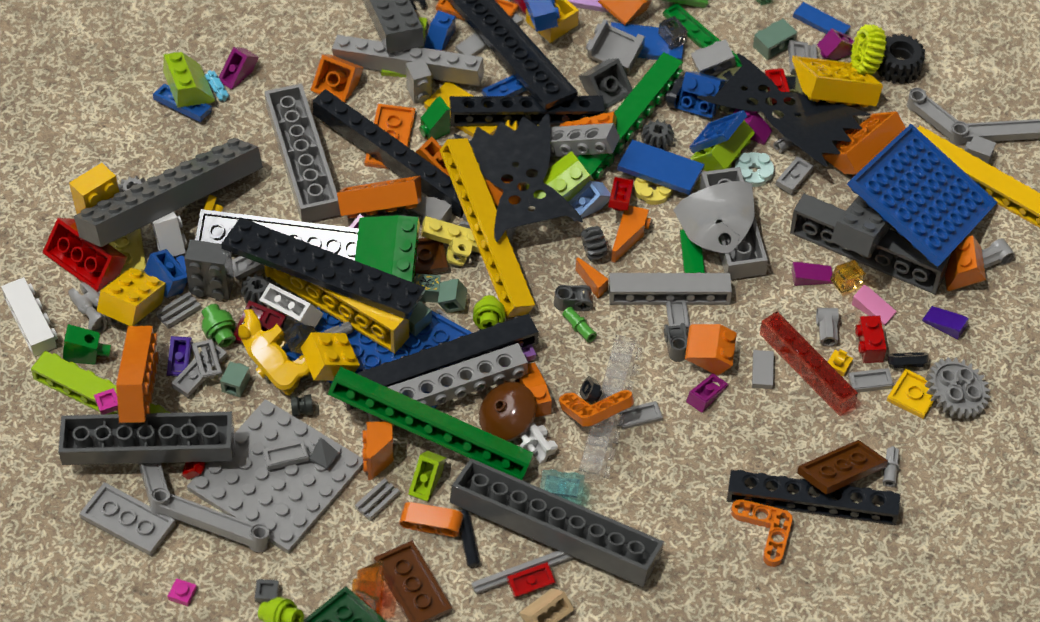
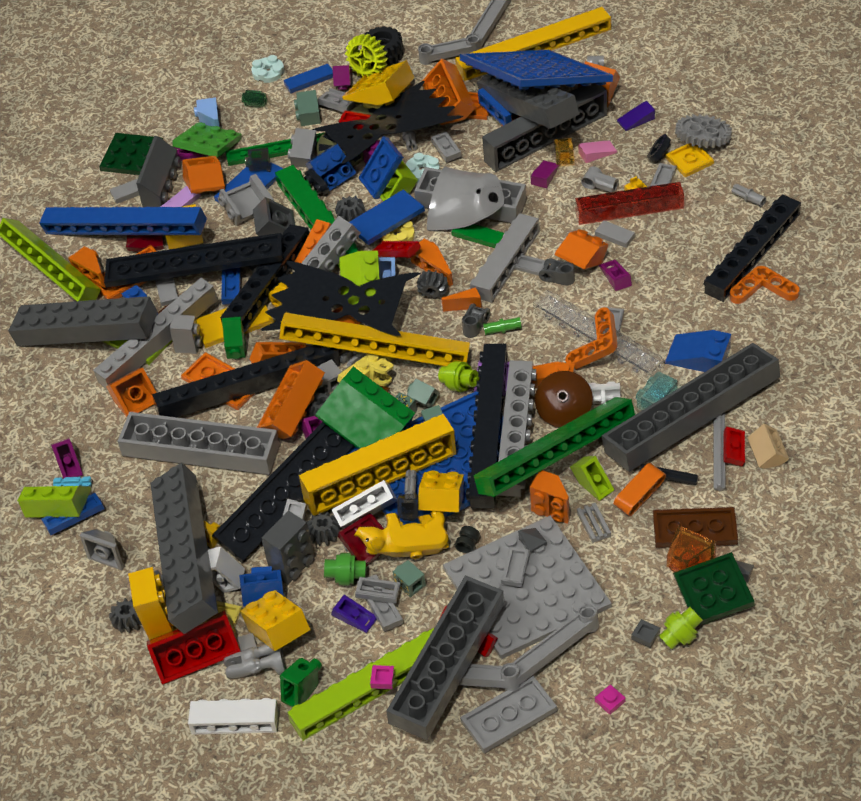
camera: 55 degrees left, 5 degrees down
(137, 374) = (377, 635): orange brick -> none
(154, 140) = (101, 548): none -> light grey slope
(176, 307) = (300, 584): light grey tile -> none
(323, 268) = (356, 454): black plate -> none
(590, 390) = (578, 337): black plate -> none
(641, 504) = (699, 349): none -> blue slope
(842, 466) = (740, 216): reddish brown plate -> none
(871, 339) = (630, 160): red brick -> none
(981, 148) = (496, 35): light grey brick -> none

